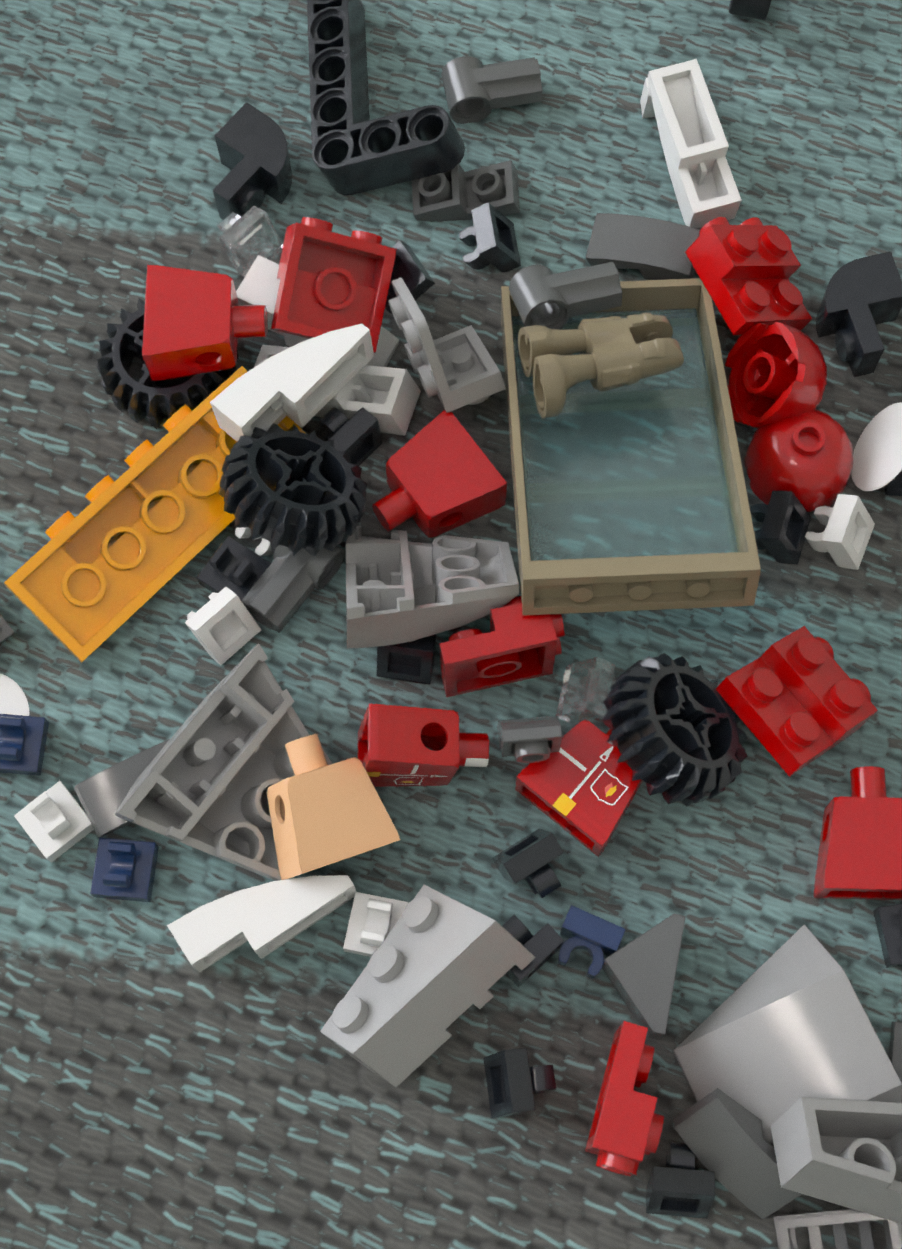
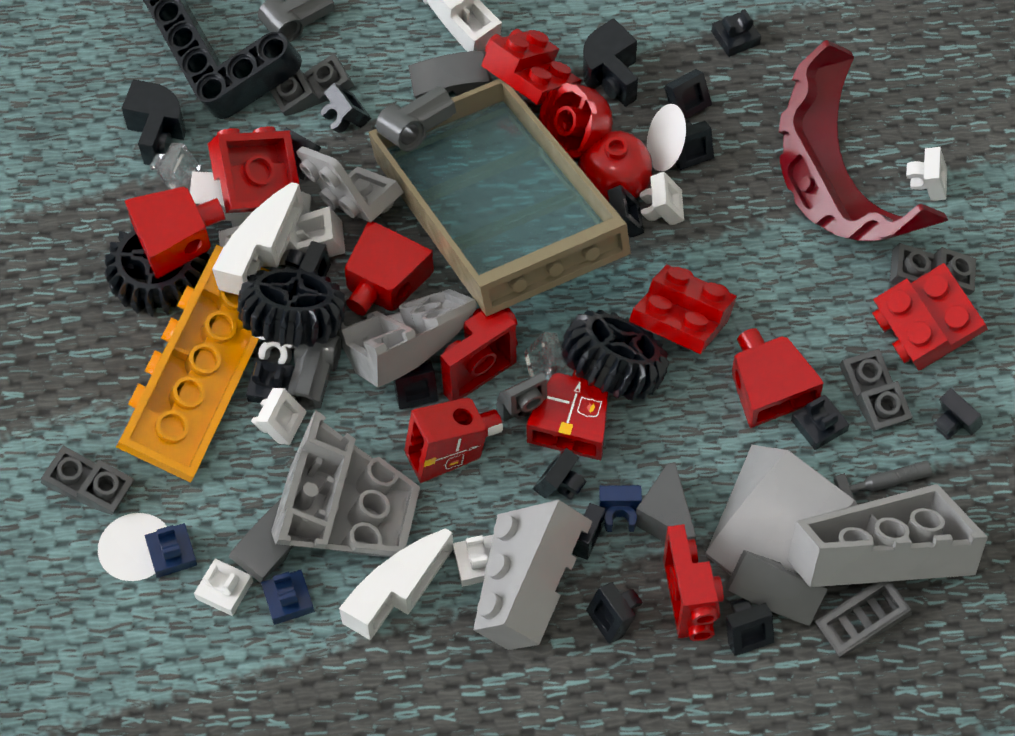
camera: 25 degrees left, 10 degrees down
(324, 811) = (411, 495): light nougat torso -> none
(611, 355) = (460, 140): dark tan piece -> none

